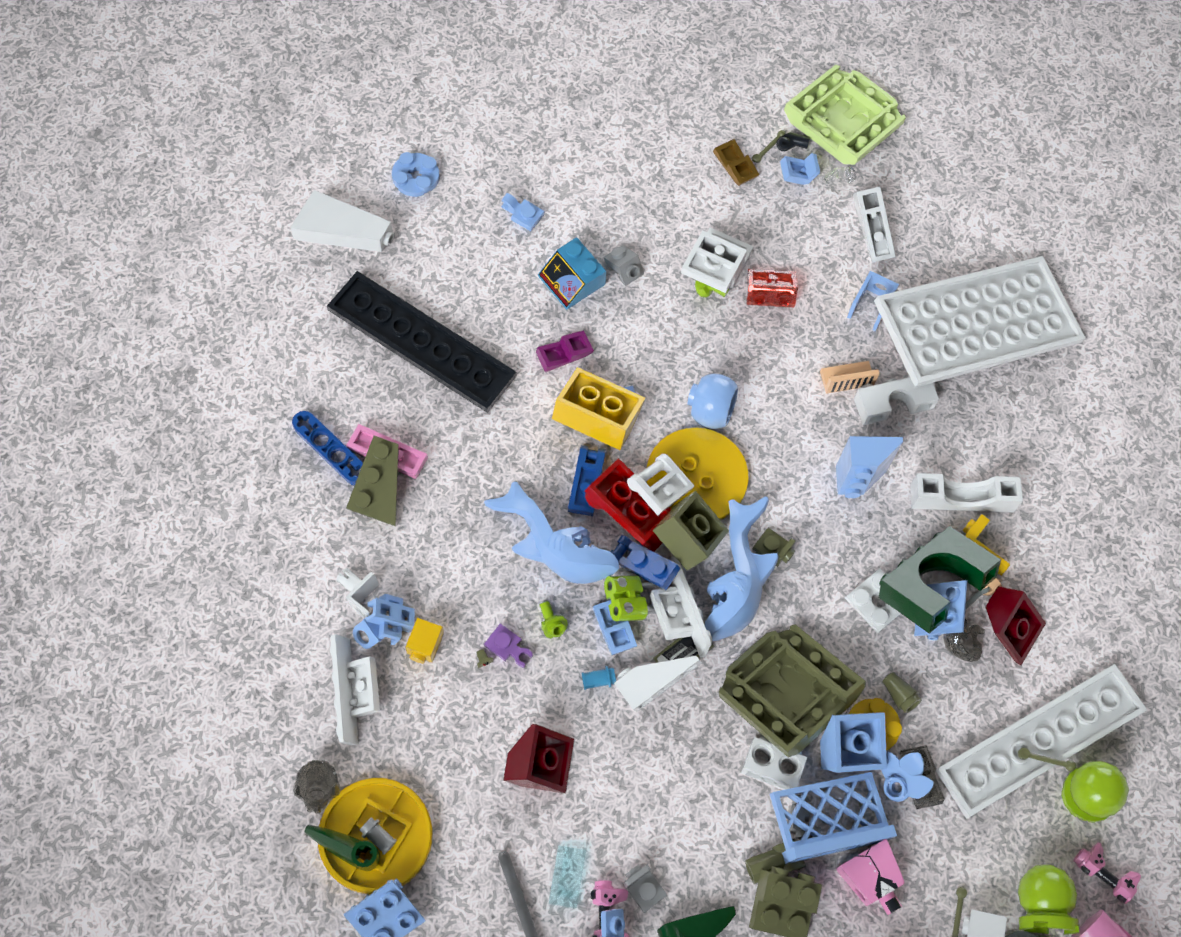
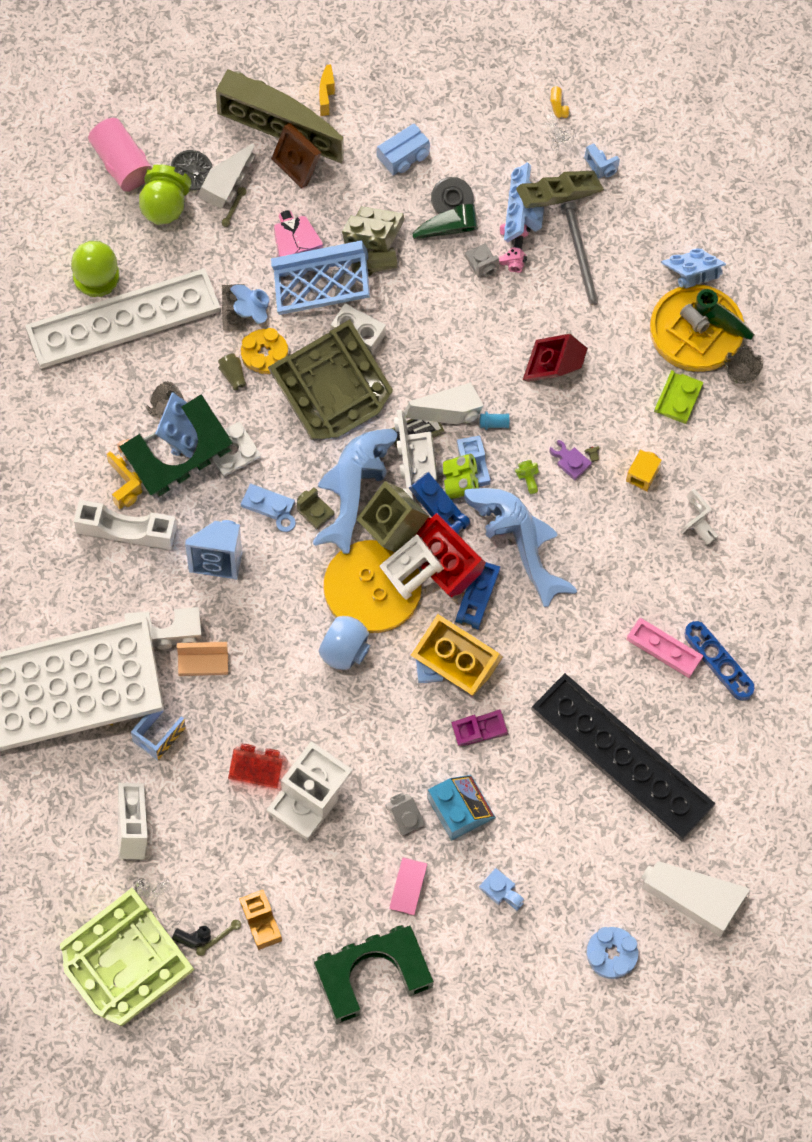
camera: 170 degrees left, 0 degrees up
(354, 688) = (707, 441): white bracket -> none
(377, 483) = (676, 613): olive wing -> none
(377, 623) = (683, 482): light blue piece -> none
(391, 743) = (678, 397): none -> lime plate
(567, 877) = (543, 278): clear light blue tile -> none
(609, 203) = (408, 886): none -> bright pink slope
(610, 150) = (398, 947): none -> dark green arch
(800, 170) = (194, 896): light blue bracket -> none
(822, 547) = (270, 505): none -> light blue hinge
(854, 743) = (288, 326): light blue slope -> none
(1014, 621) = (118, 411): dark red slope -> none
(1024, 753) = (144, 305): olive hinge -> none
(1092, 863) = (112, 224): bright pink piece -> none

